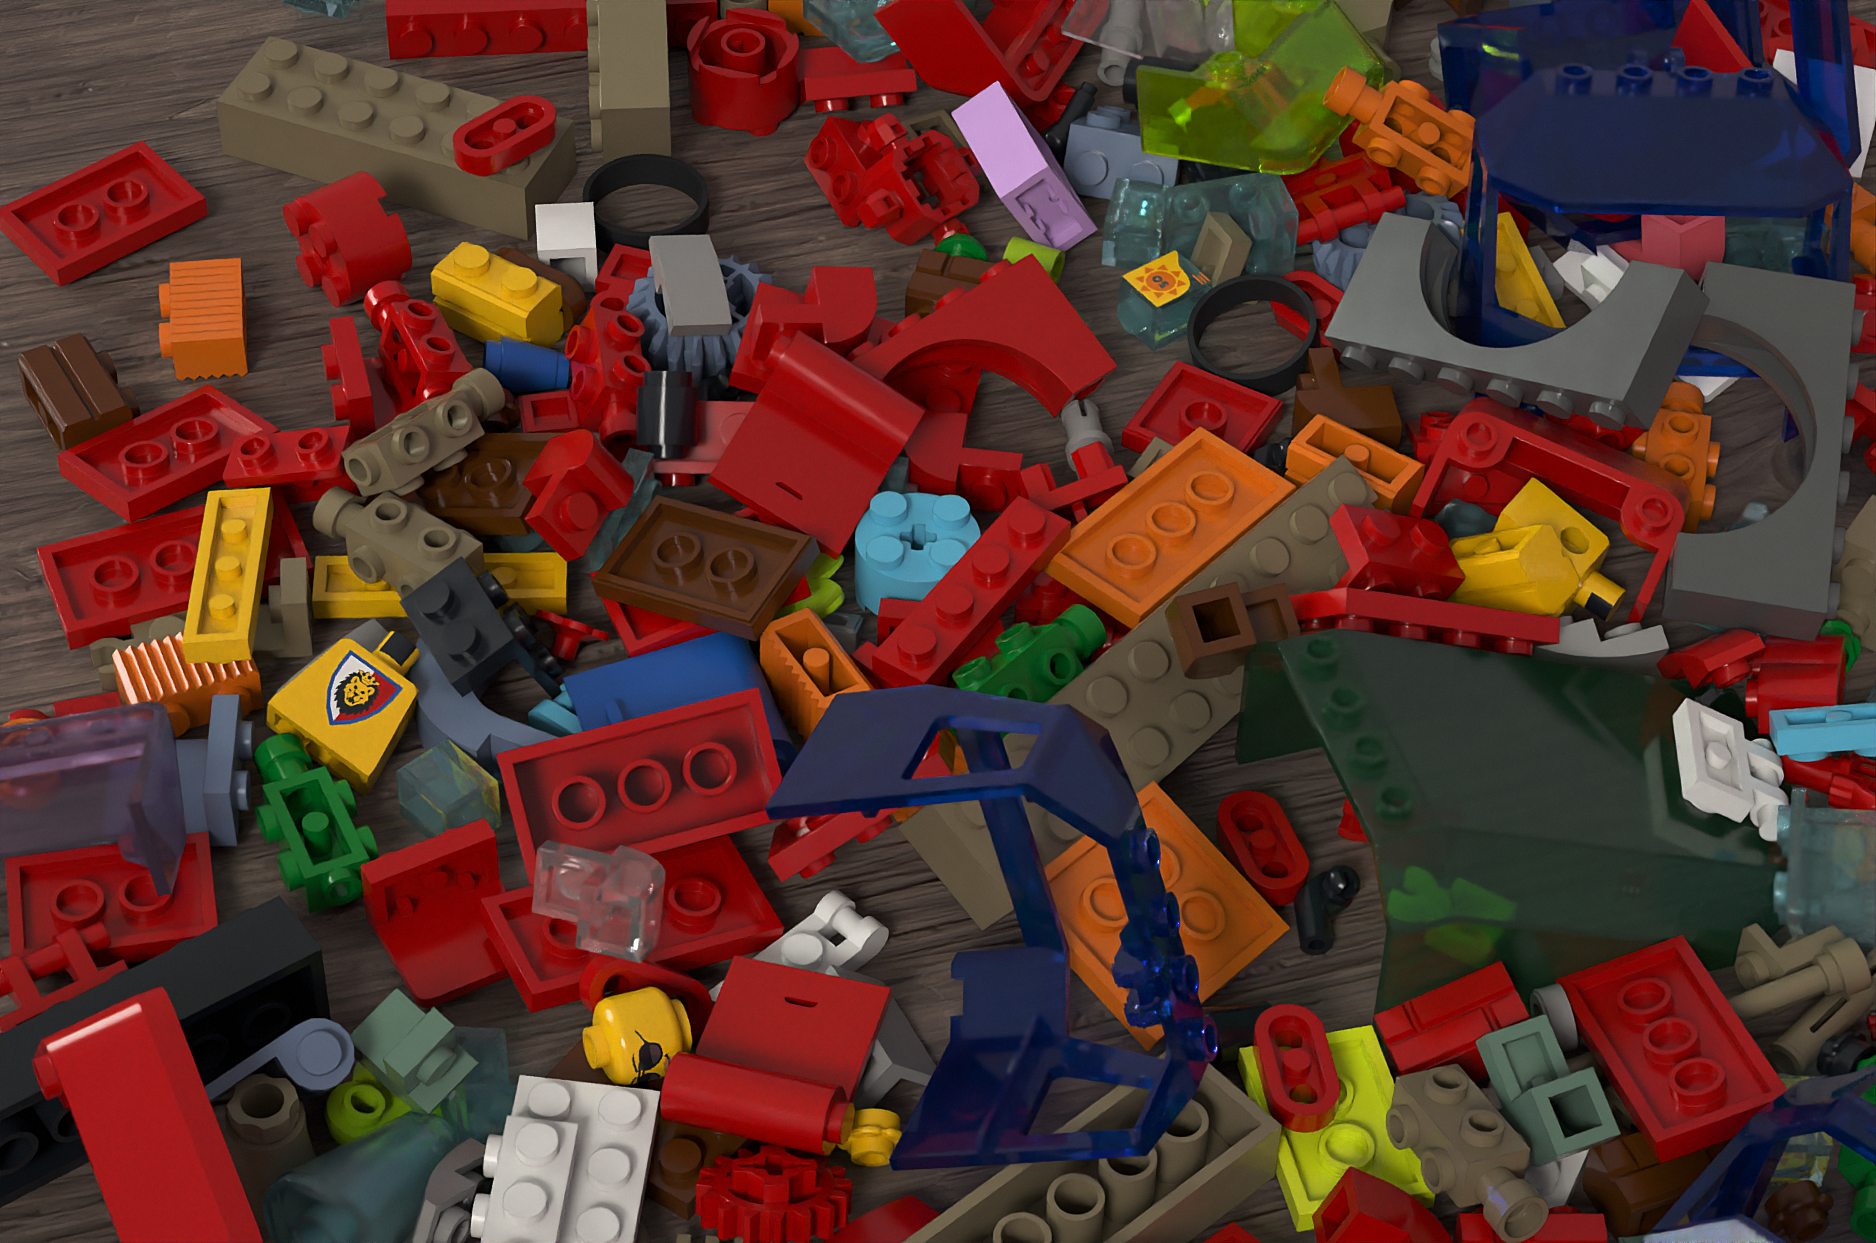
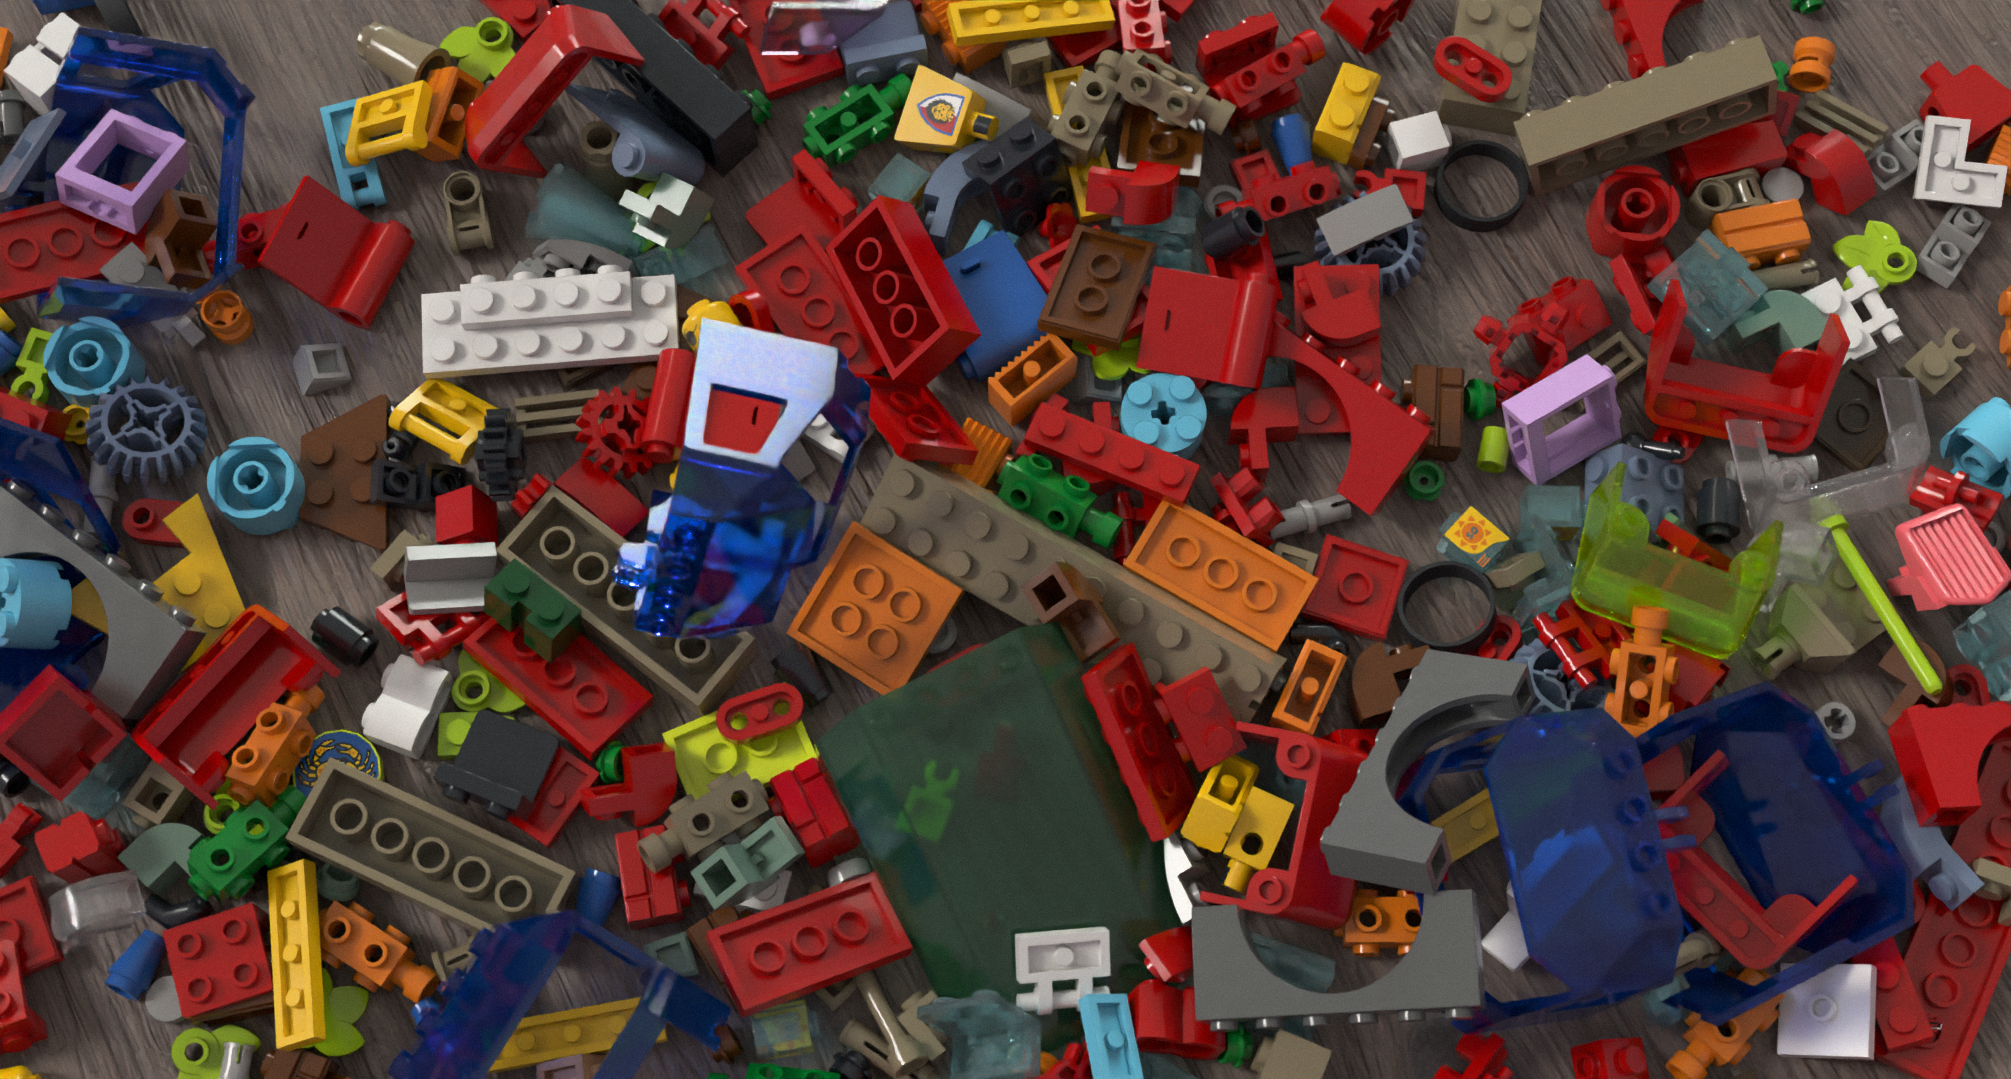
camera: 80 degrees right, 25 degrees up
(608, 895) = (794, 294): clear brick -> none

